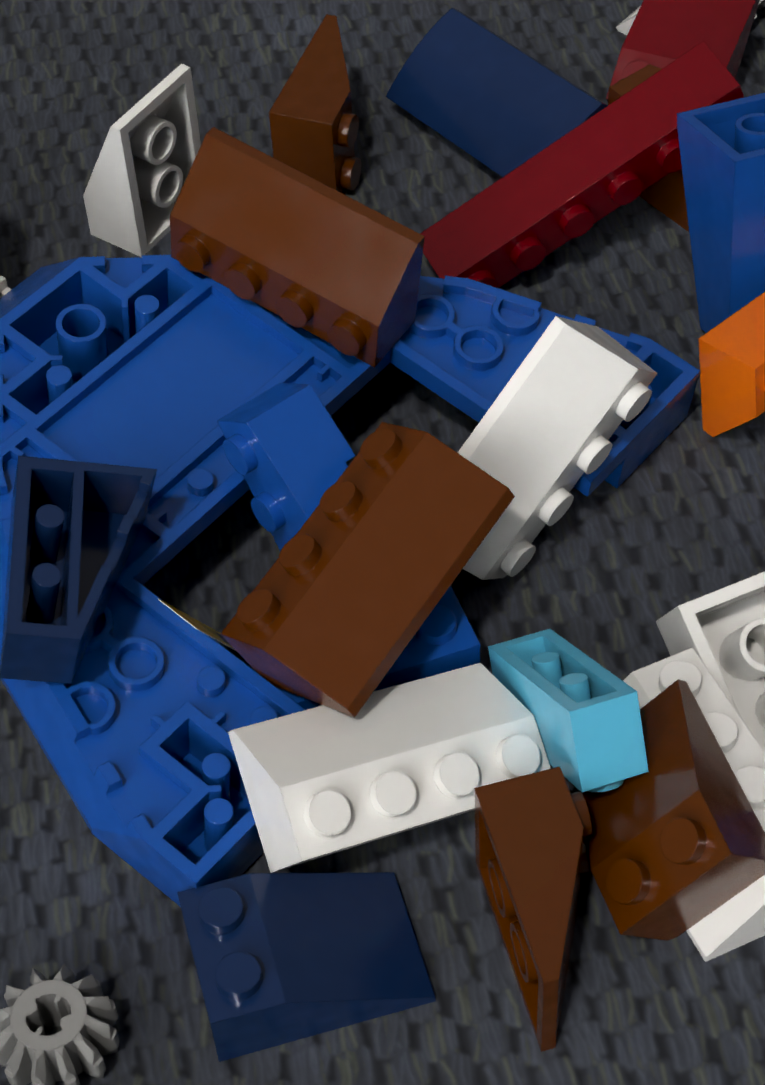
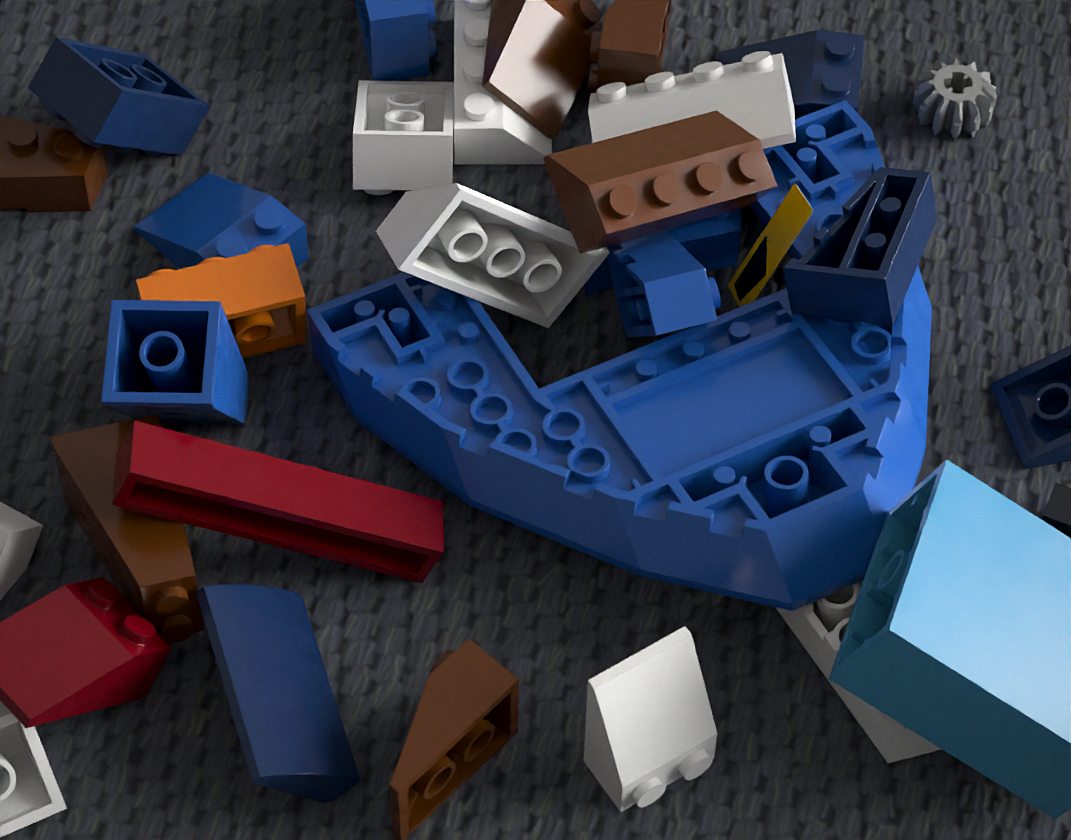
camera: 160 degrees left, 5 degrees up
(297, 248) = (592, 432): reddish brown slope -> none
(580, 708) = (560, 98): medium azure brick -> none

